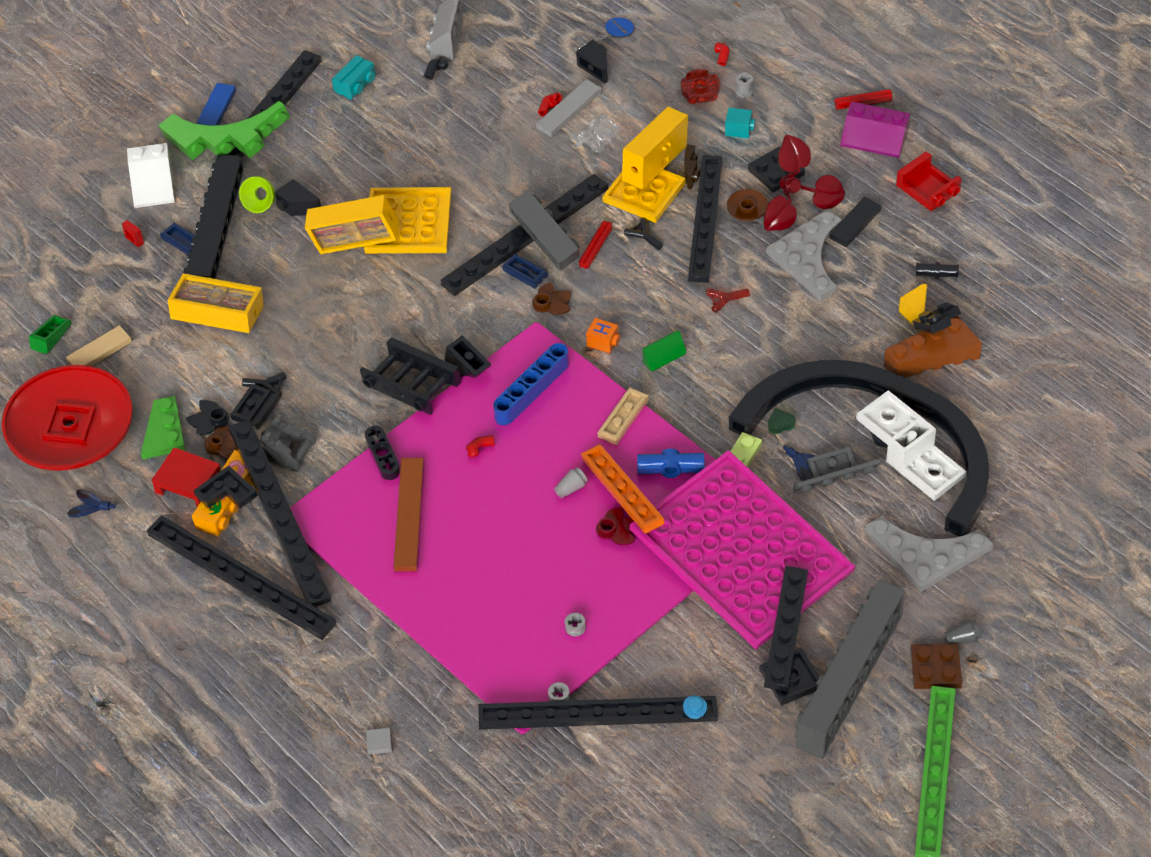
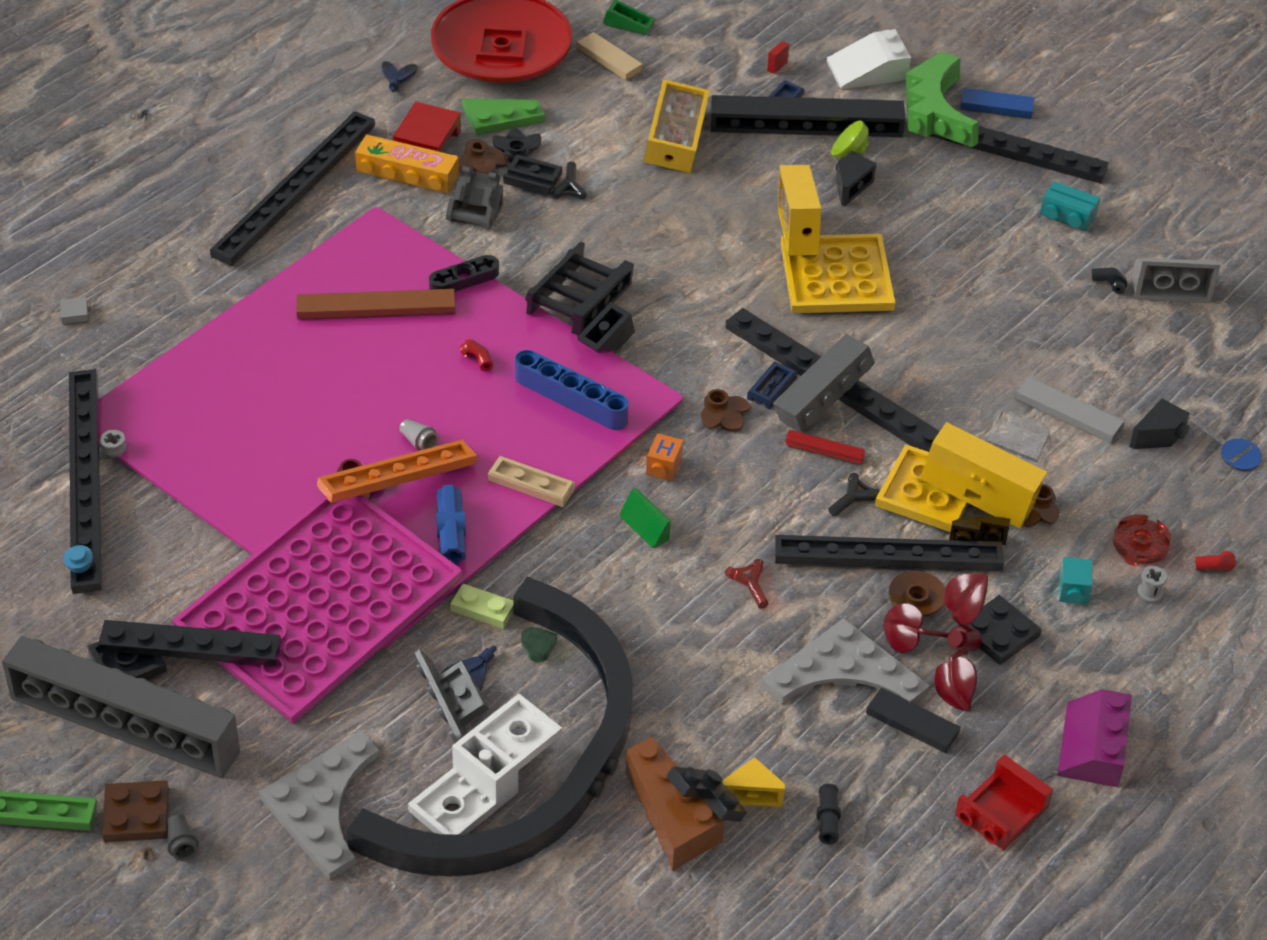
camera: 80 degrees right, 5 degrees down
(227, 484) = (397, 150): black plate -> none
(279, 514) = (371, 200): black plate -> none
(549, 102) = (1072, 388): red arm -> none
(575, 631) = (211, 459): light grey bush -> none
(865, 98) = (1163, 727): red axle -> none

